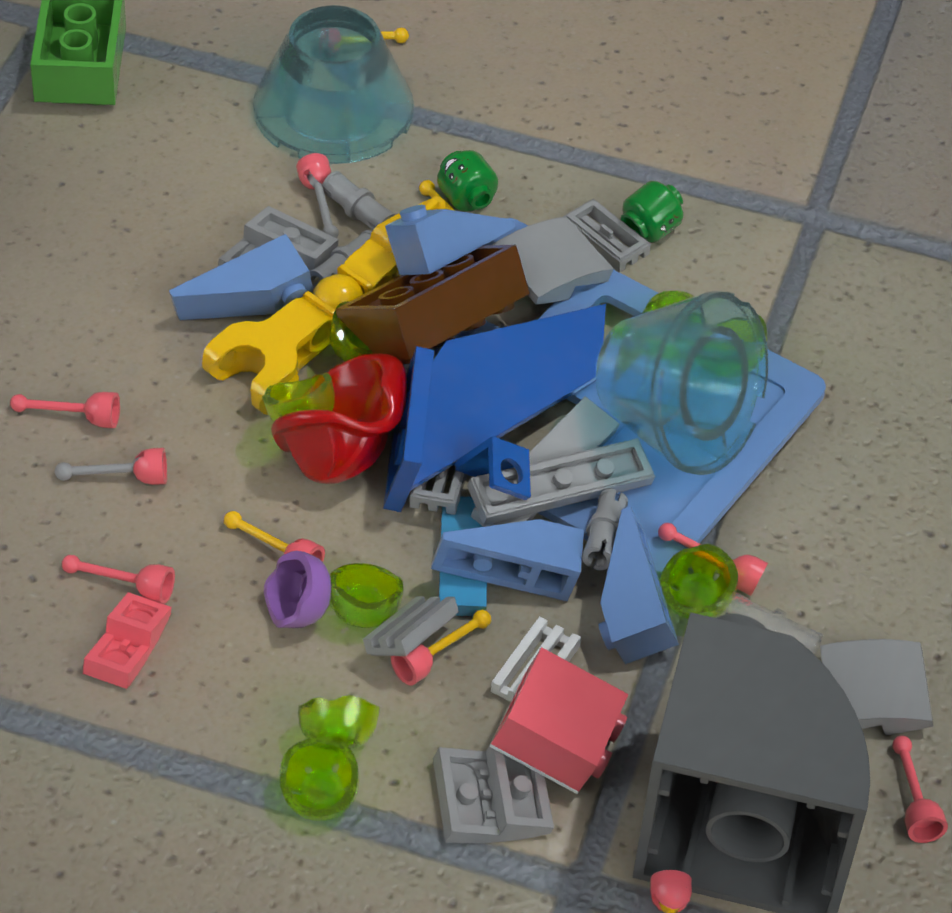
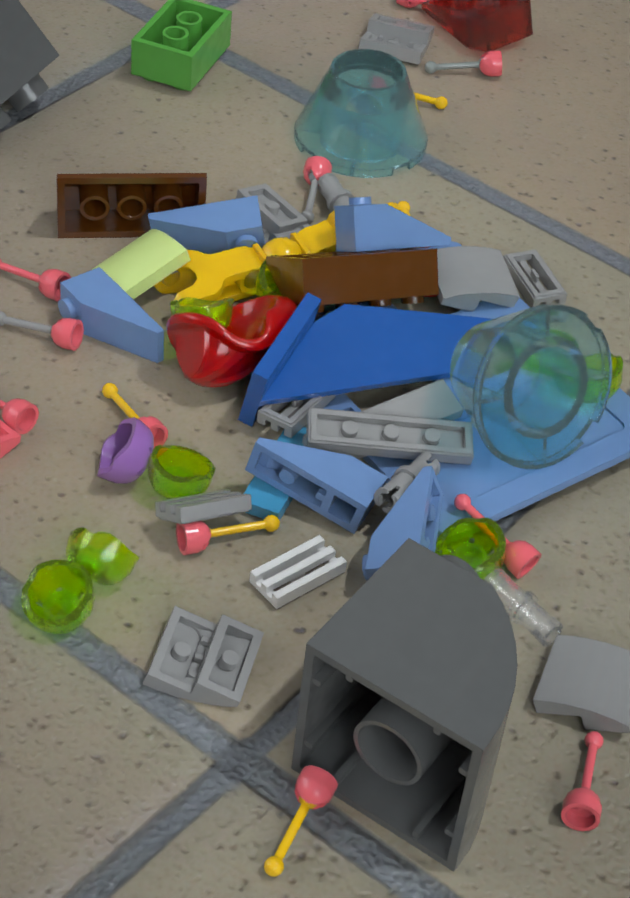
camera: 20 degrees right, 5 degrees down
(130, 286) = (120, 202): none -> reddish brown slope
(190, 354) = (145, 262): none -> yellowish green slope
(190, 428) = (111, 314): none -> medium blue slope
(467, 180) = (436, 206): green head -> none
(499, 455) = (338, 396): blue bracket -> none
(561, 721) = (279, 613): coral piece -> none
(653, 210) = (580, 269): green head -> none

